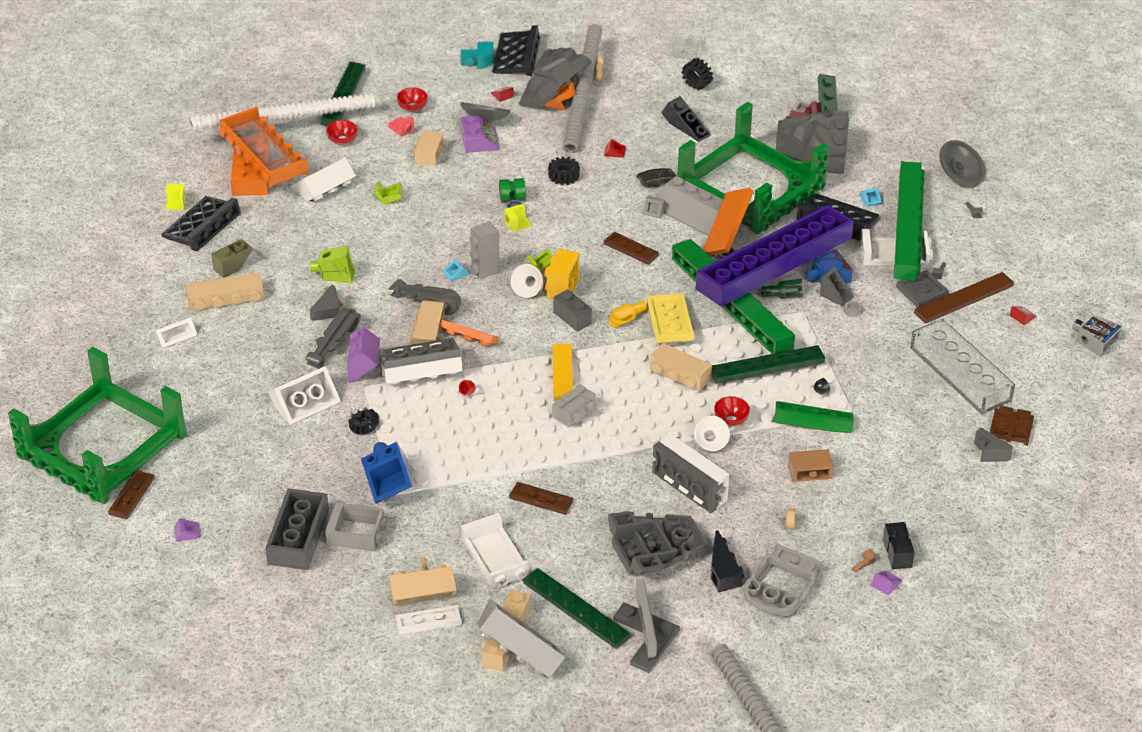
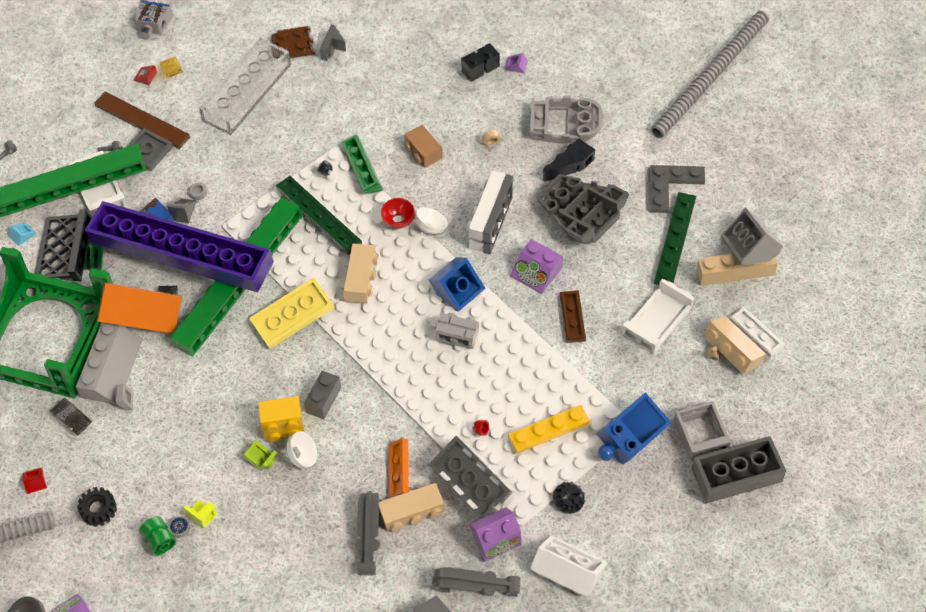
camera: 115 degrees left, 15 degrees up
(186, 530) = (791, 570): medium lavender slope -> none
(434, 430) = (549, 429): none -> yellow plate
(455, 271) = (309, 531): medium azure slope -> none
(484, 250) = (288, 494): light grey brick -> none
(562, 370) = (413, 364): yellow tile -> none
(613, 493) = (537, 266): none -> medium lavender slope
(625, 423) = (457, 283): none -> blue slope
(626, 313) = (300, 352): yellow arm -> none
(631, 248) = (194, 395): reddish brown tile -> none
(646, 618) = (667, 177): light grey tile -> none
(869, 558) = (500, 79): medium nougat hand -> none
(1022, 331) = (171, 67): none -> clear yellow plate

